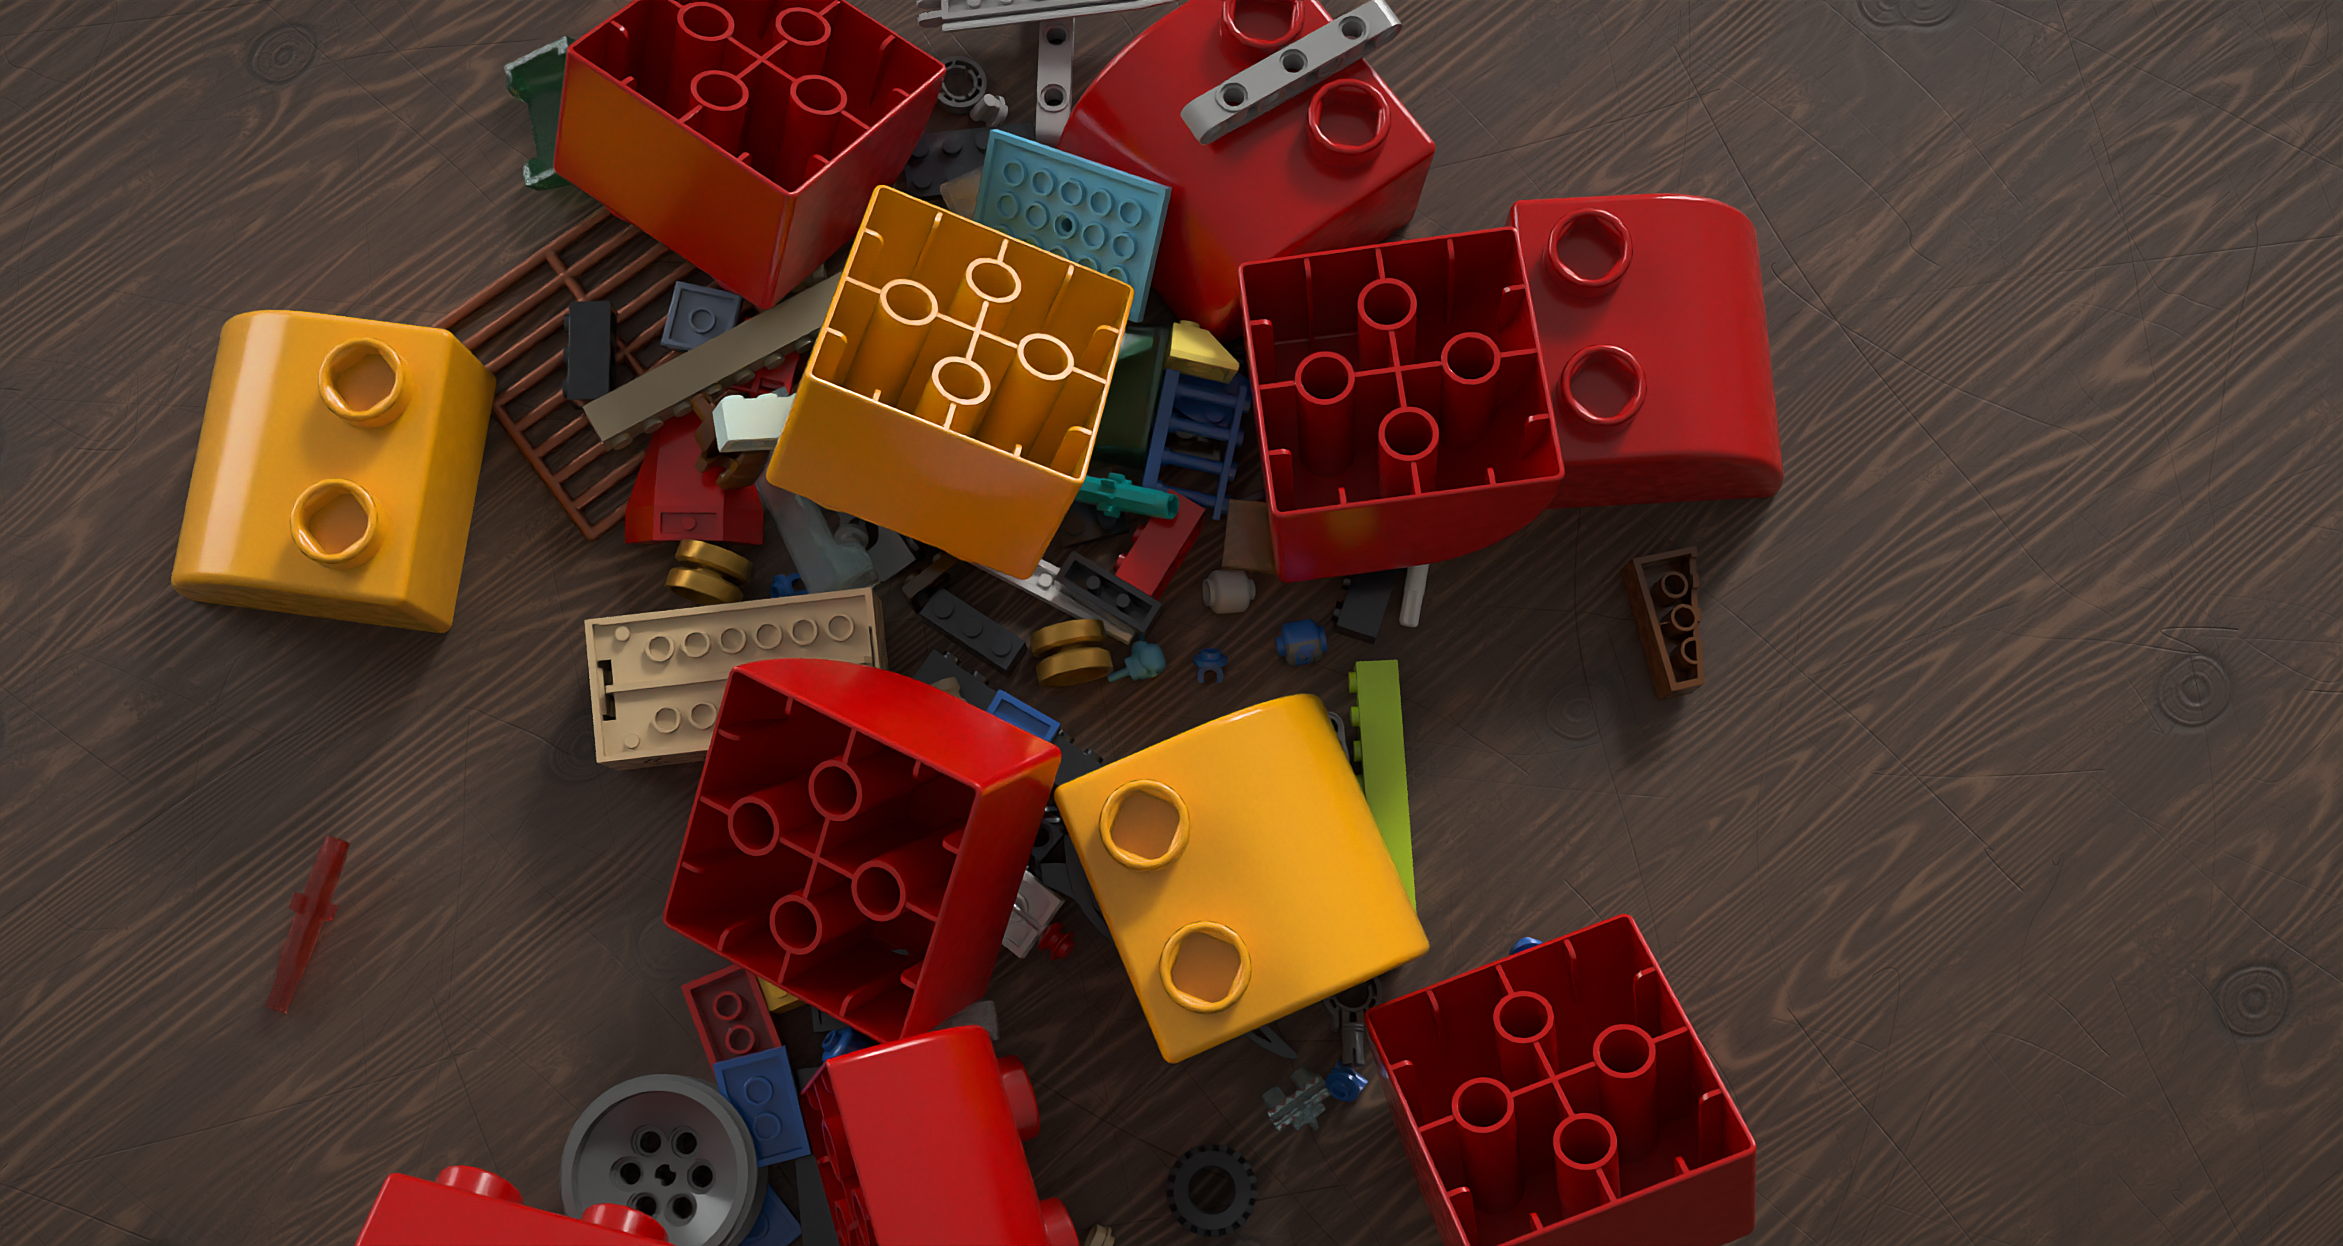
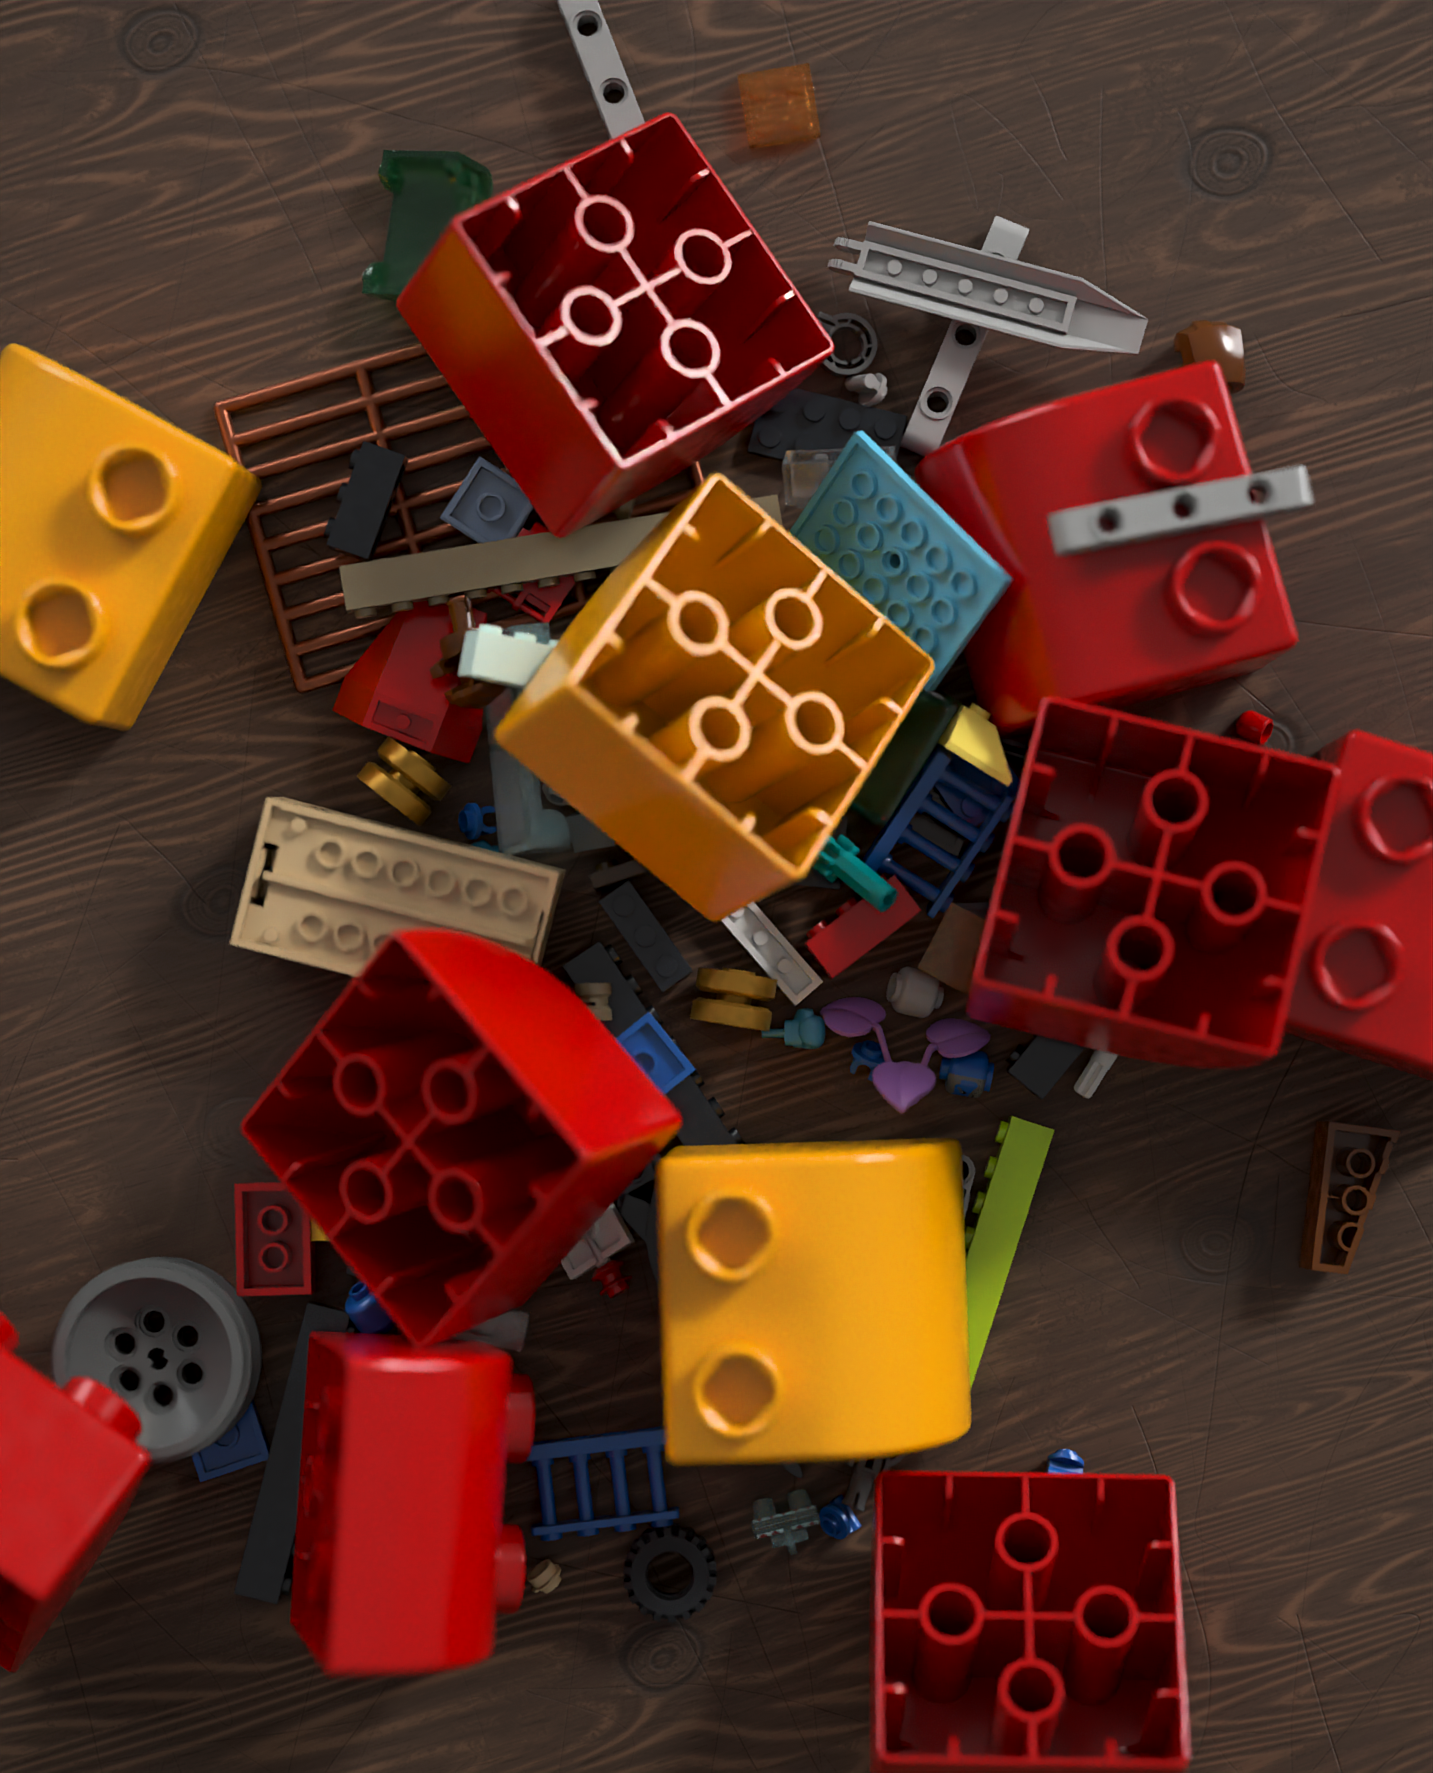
camera: 25 degrees right, 10 degrees up
(767, 1099) = (278, 1328): blue plate -> none
(1086, 1113) = (615, 1448): none -> blue fence
(1108, 596) = (791, 957): black brick -> none
(1244, 660) = (904, 1081): none -> medium lavender plant

